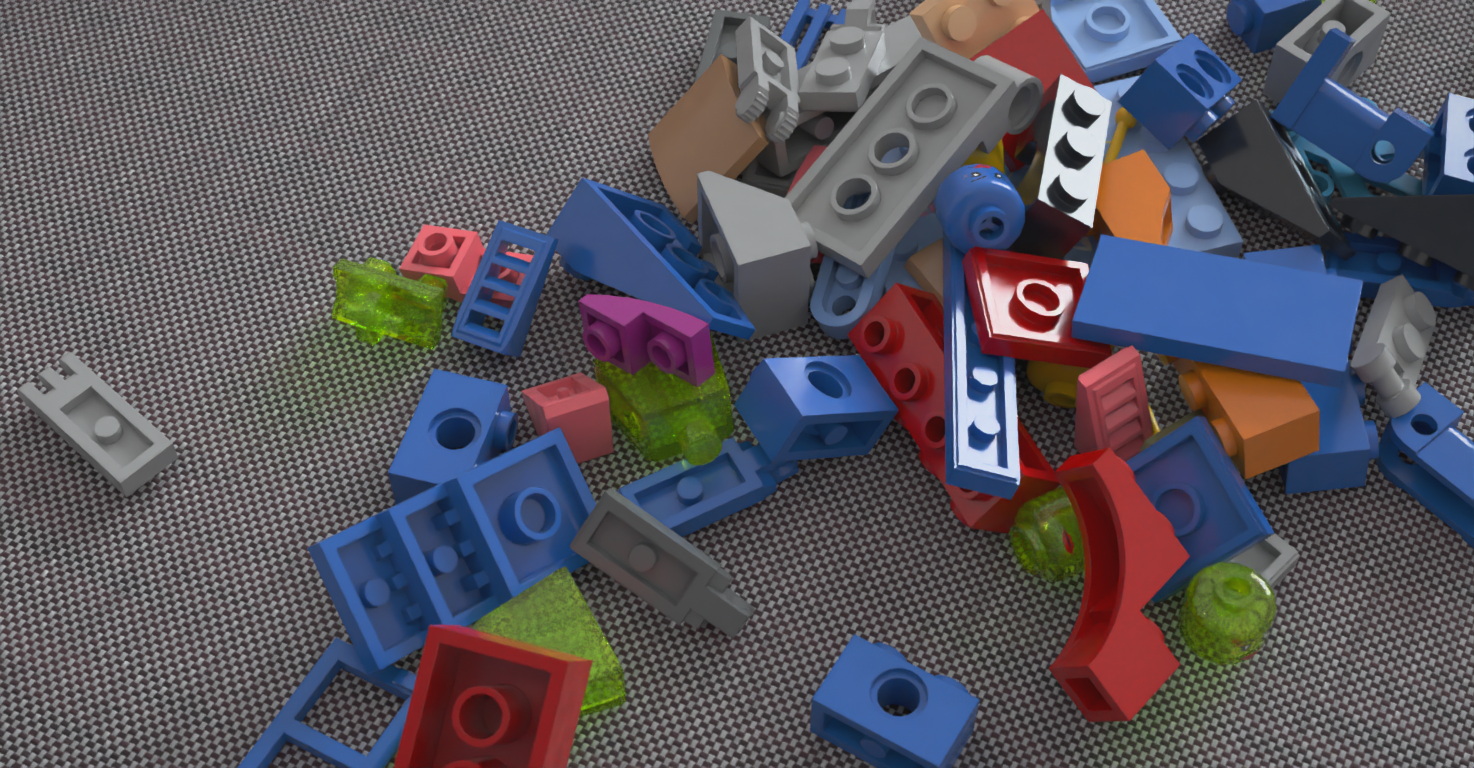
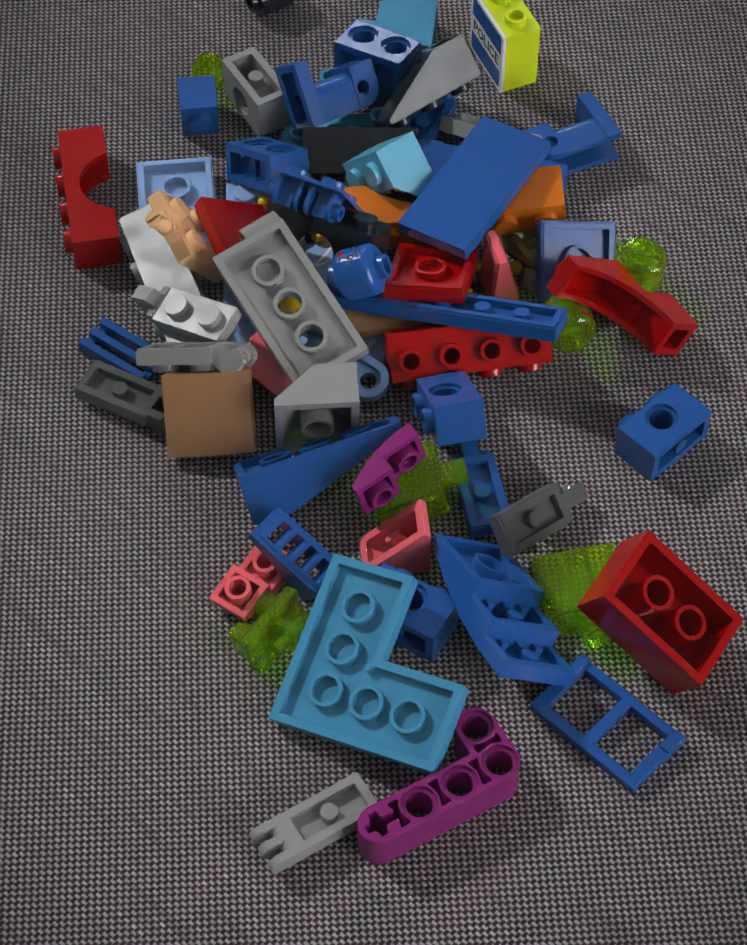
camera: 75 degrees left, 0 degrees up
(149, 545) = (389, 828): none -> magenta beam
(292, 392) = (343, 680): none -> dark azure plate
(1085, 111) = (317, 198): none -> blue hinge
(1214, 208) = (392, 168): none -> medium azure slope

